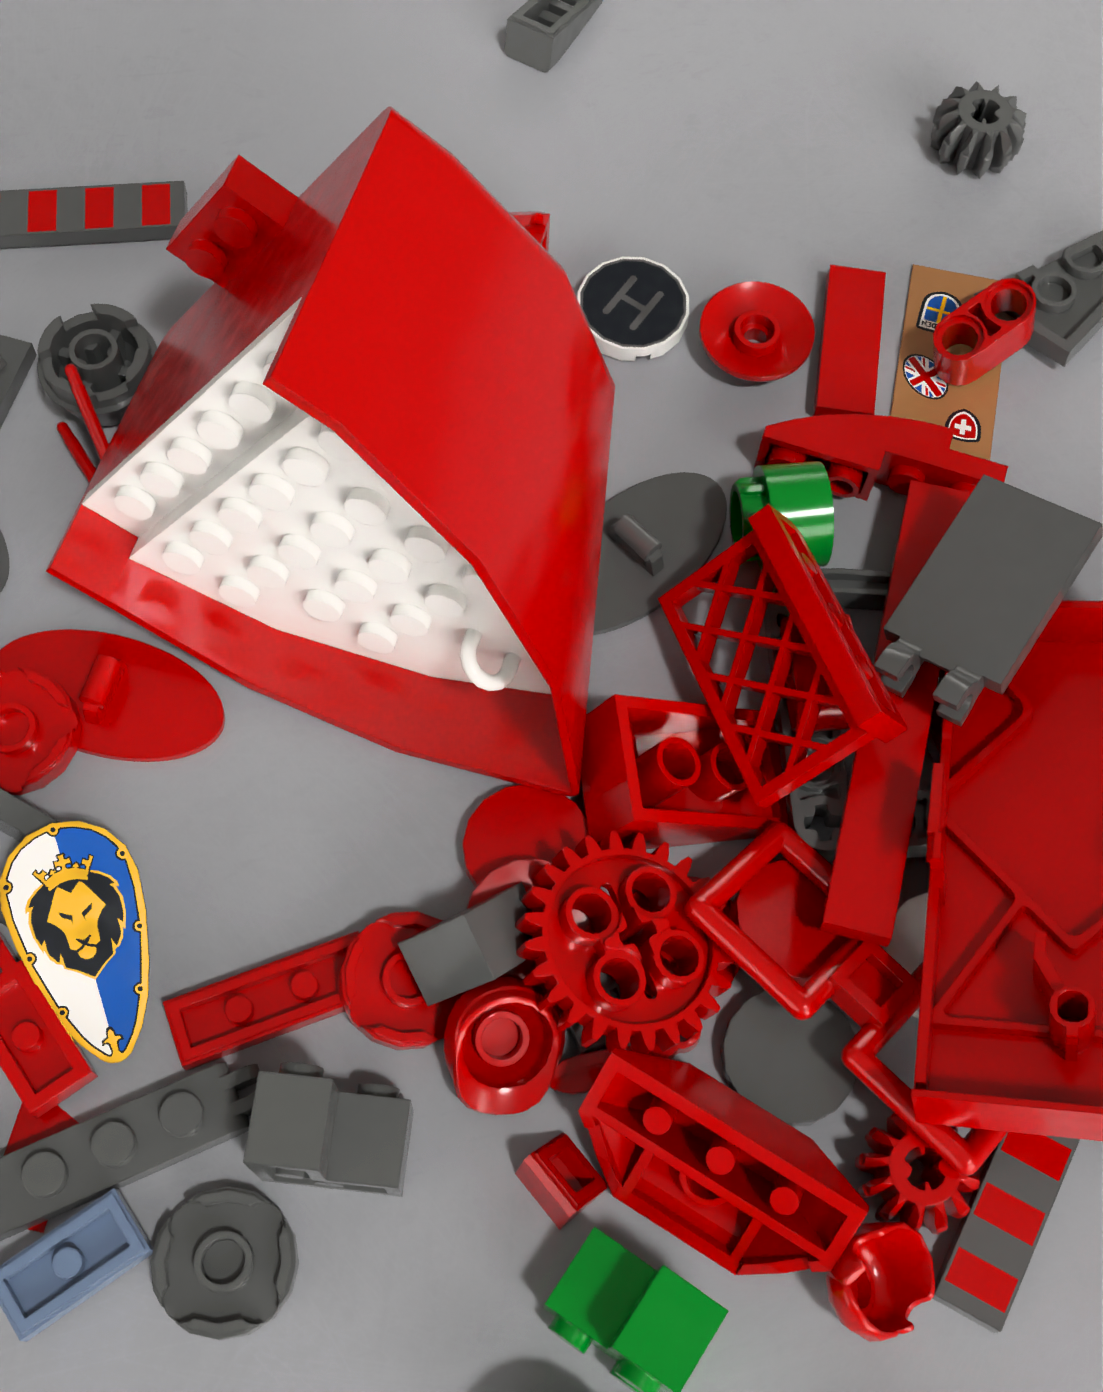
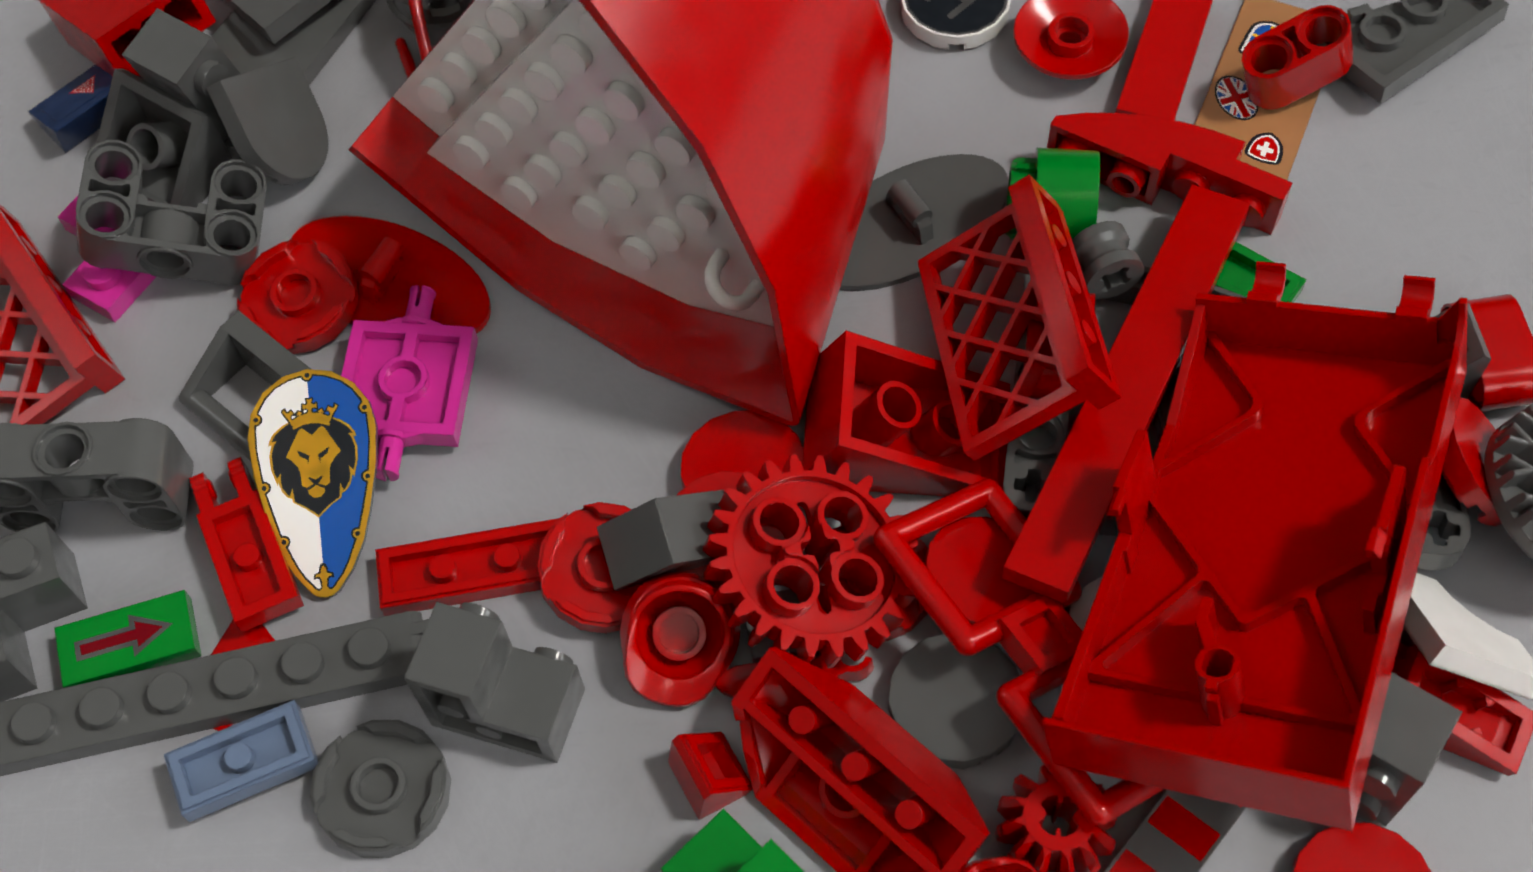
camera: 20 degrees right, 5 degrees down
(160, 803) = (413, 377): none -> dark pink plate
(850, 573) = (1106, 260): none -> dark grey wheel
(986, 594) = (1229, 289): dark grey tile -> none

